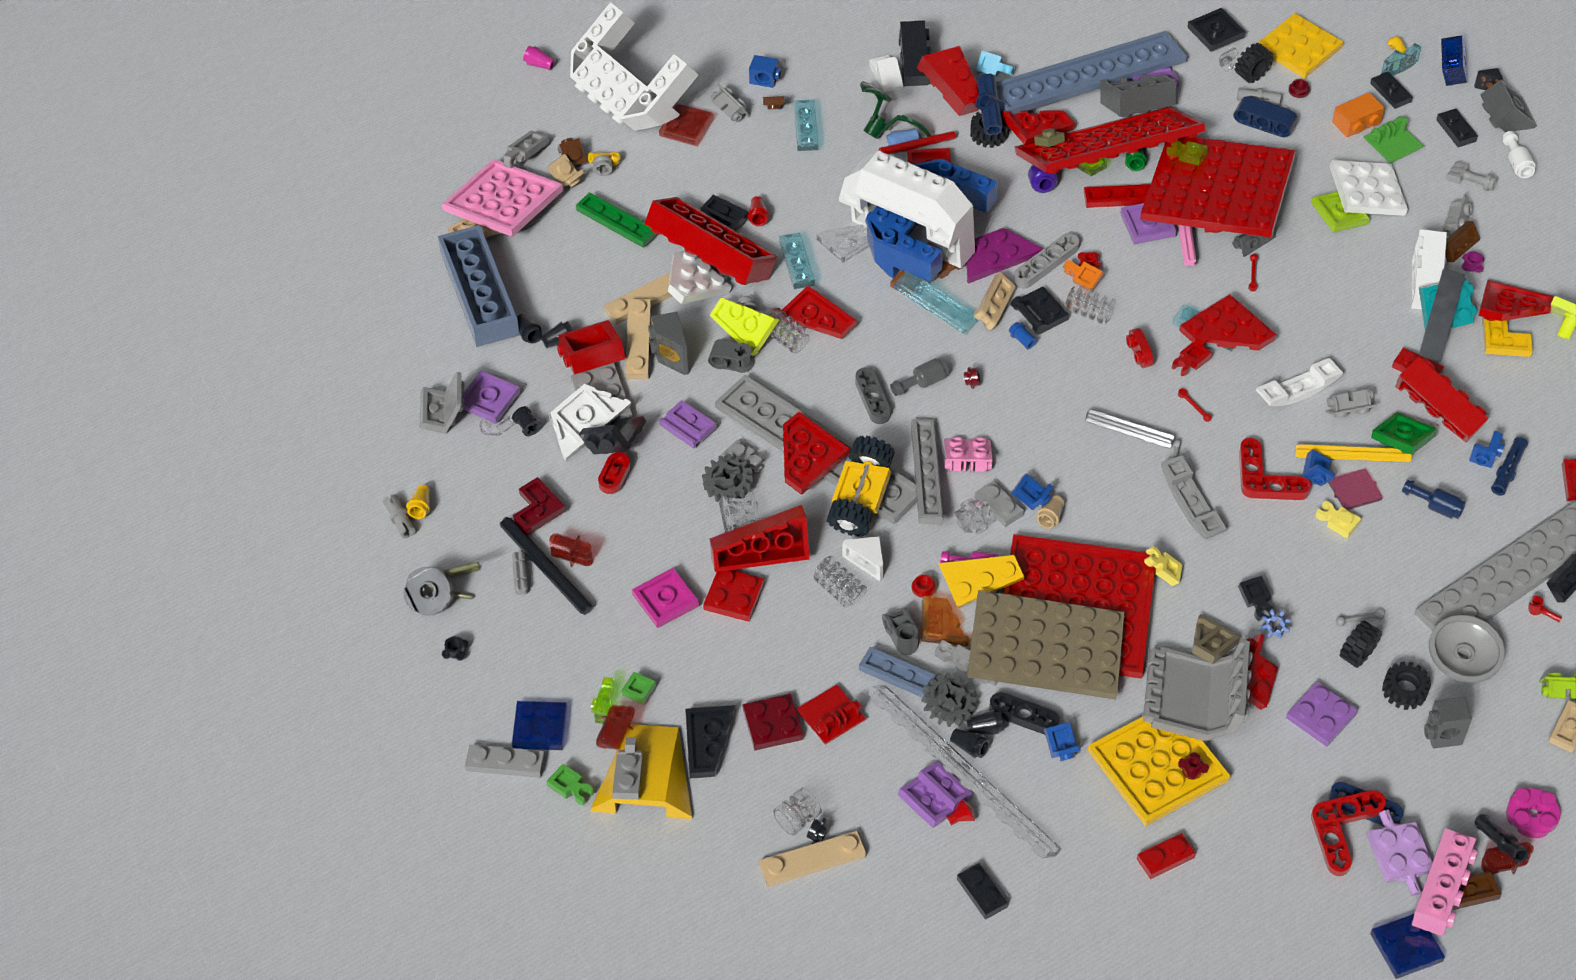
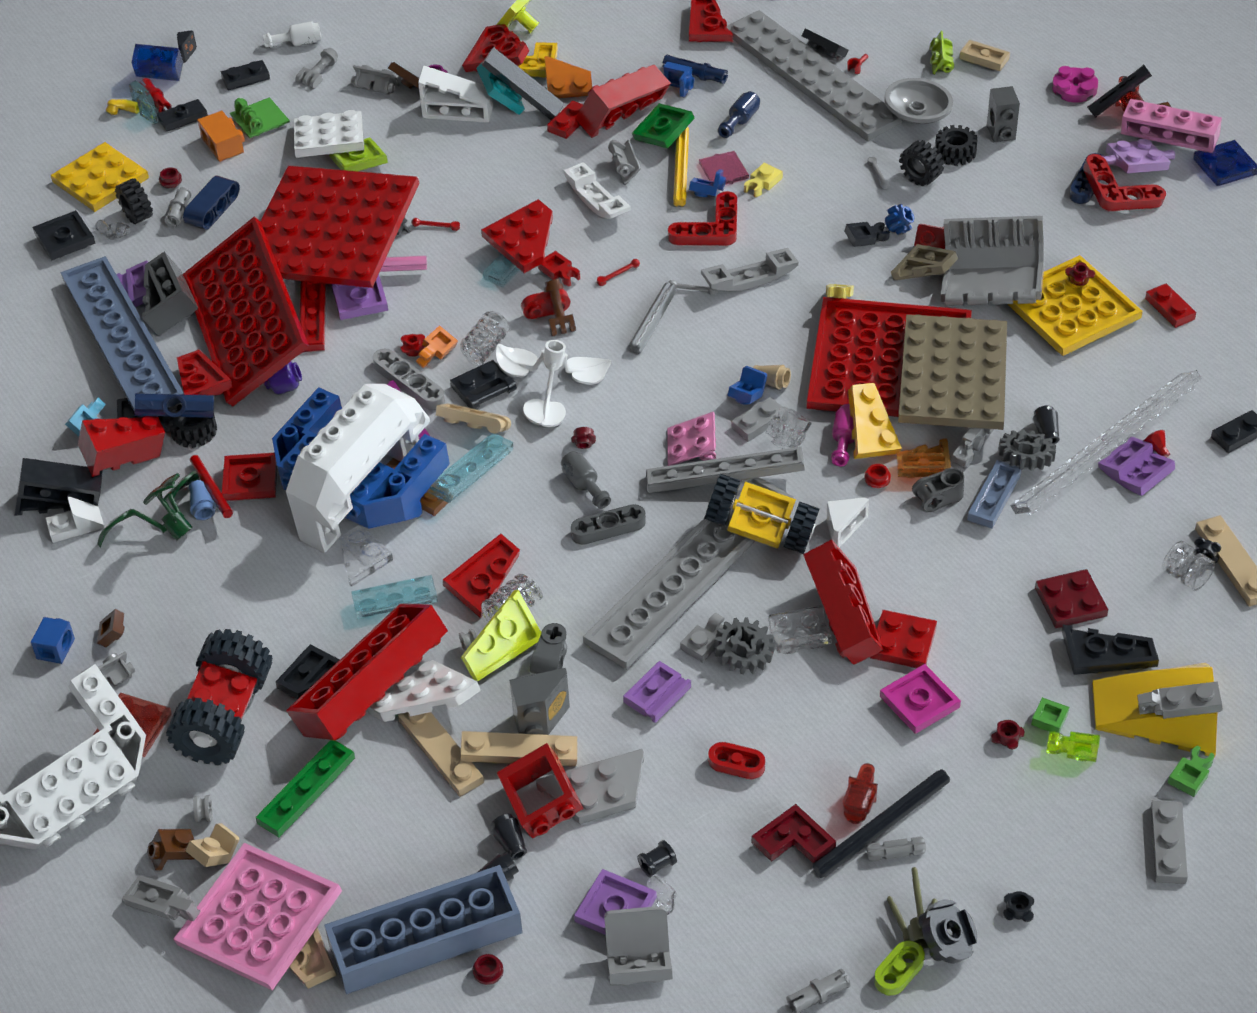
camera: 90 degrees left, 5 degrees down
(411, 559) = (898, 970): none -> lime plate
(418, 505) = (796, 967): yellow cone -> none
(447, 326) = (488, 969): none -> dark red plate
(539, 725) = (1113, 812): clear blue plate -> none
(584, 410) = (657, 793): white wing -> none
(612, 438) = (684, 753): black bracket -> none
(615, 156) = (184, 808): yellow arm -> none
(615, 726) = (1108, 727): clear red arm -> none
(624, 652) = (1004, 728): none -> dark red plate
(690, 157) = (211, 716): none -> black plate
(758, 213) = (304, 636): red cone -> none
(805, 125) = (158, 595): clear light blue plate -> none
(809, 452) = (710, 564): red plate -> none
(831, 714) = (1054, 547): red hinge -> none
(838, 582) = (885, 539): clear piece -> none
(970, 742) = (1073, 435): black cone -> none
(1019, 332) = (517, 399): blue pin -> none
(1019, 704) = (1028, 408): black beam -> none
(1049, 138) = (231, 361): olive plate -> none
(1061, 741) = (1063, 370): blue bracket -> none
(1062, 329) = (519, 362): none -> white plant
(1118, 358) = (560, 318): none -> reddish brown hinge
(1189, 153) = (283, 239): clear neon green plate -> none
(1321, 714) = (992, 199): medium lavender plate -> none
(1413, 67) = (157, 95): none -> red pin
(1473, 359) = (566, 79): none -> orange wing
(1507, 108) = (229, 36): dark grey slope -> none

